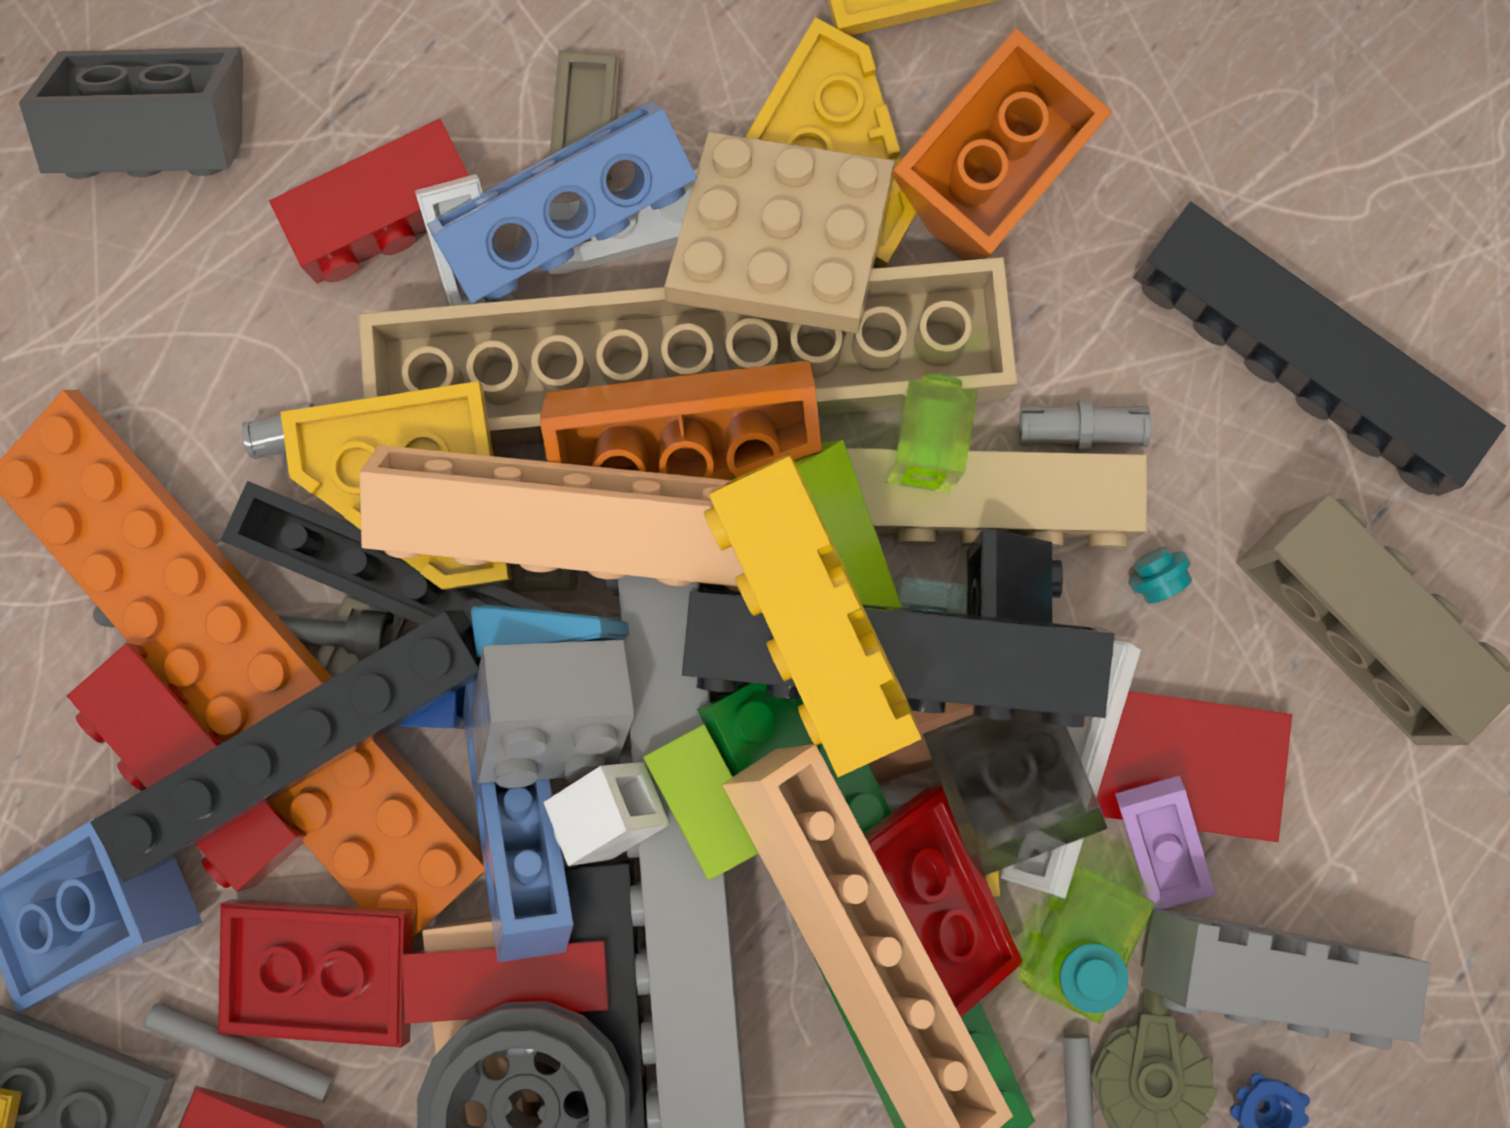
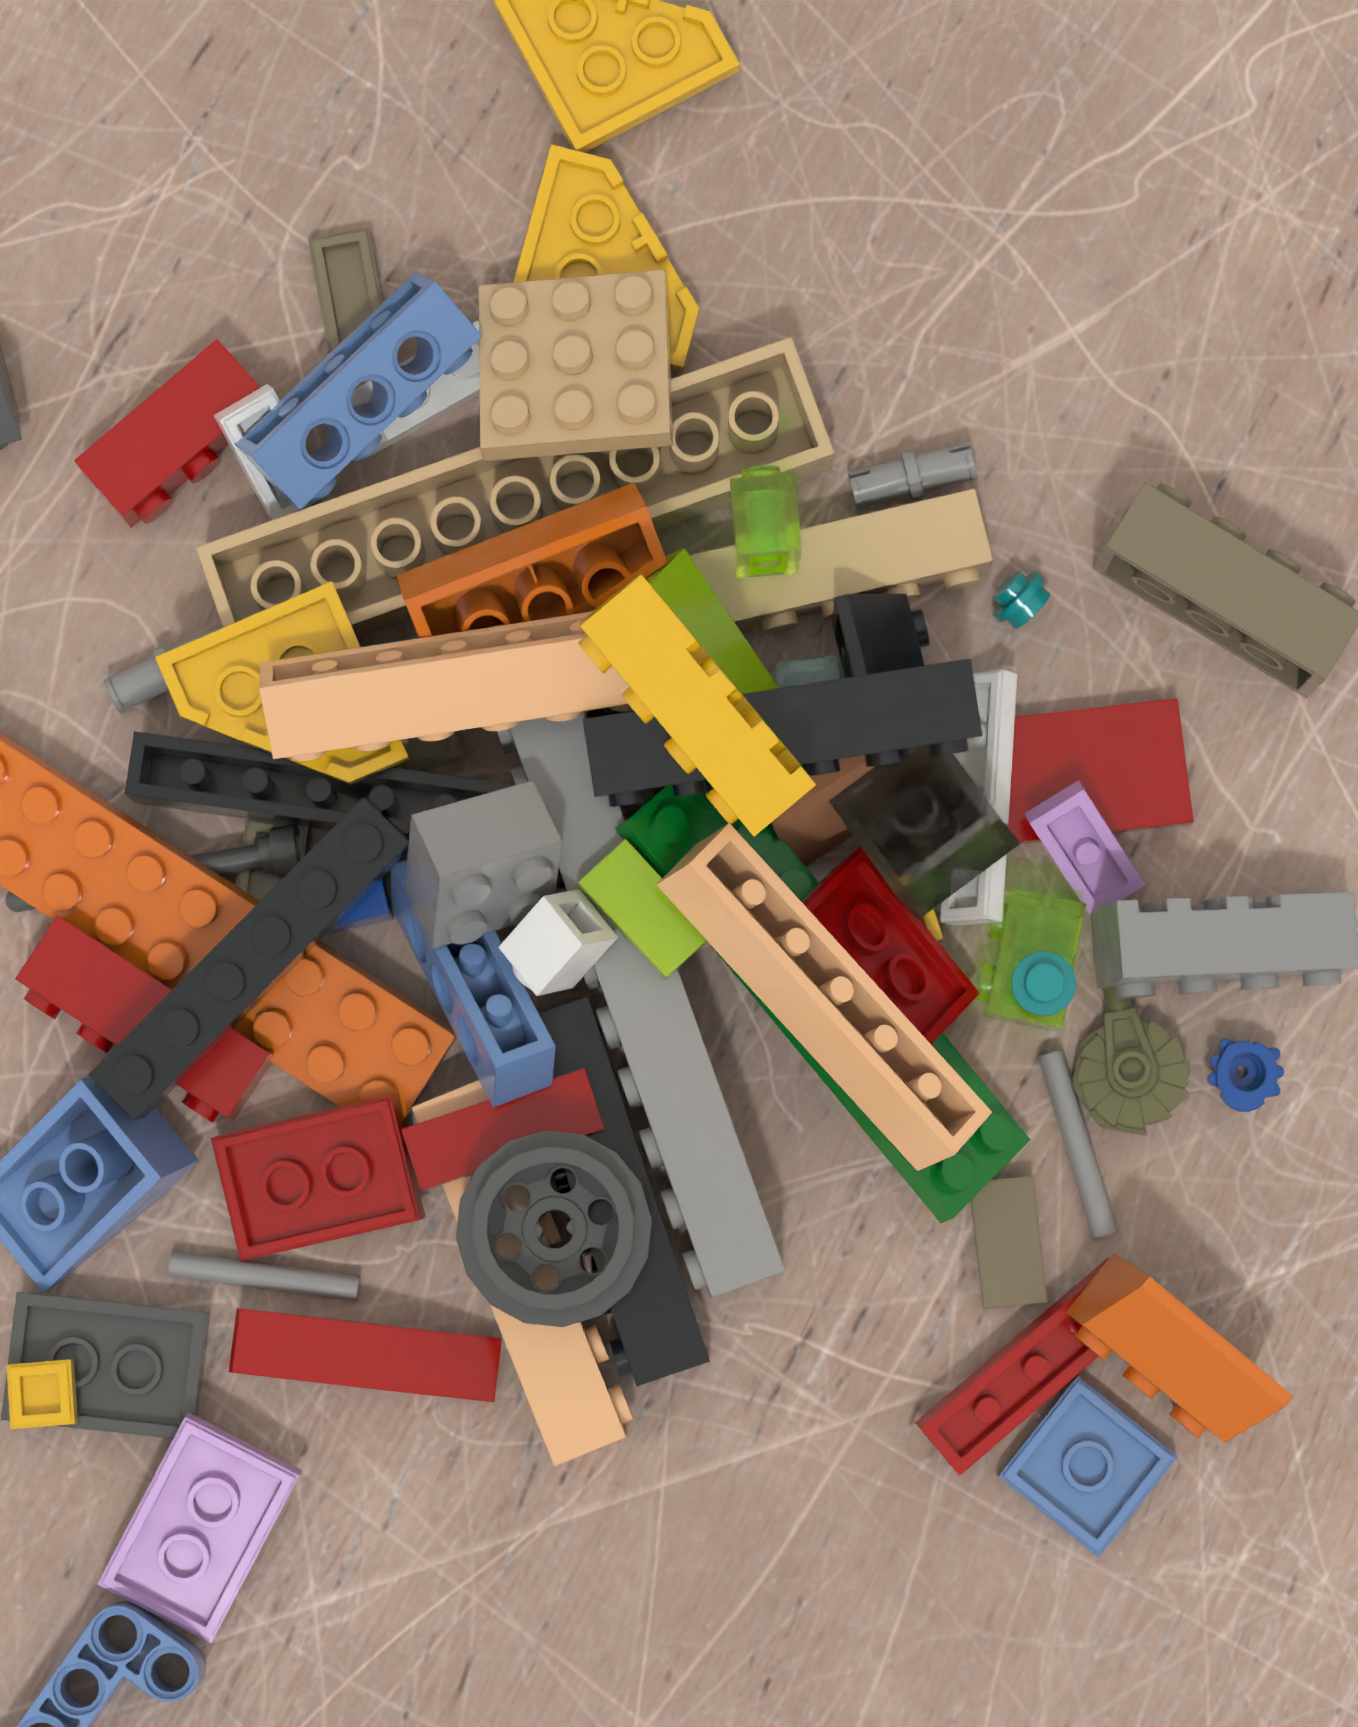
camera: 15 degrees left, 0 degrees up
(525, 626) = (434, 792): dark azure slope -> none
(998, 147) = (760, 231): orange slope -> none
(1318, 353) = (1114, 347): black brick -> none

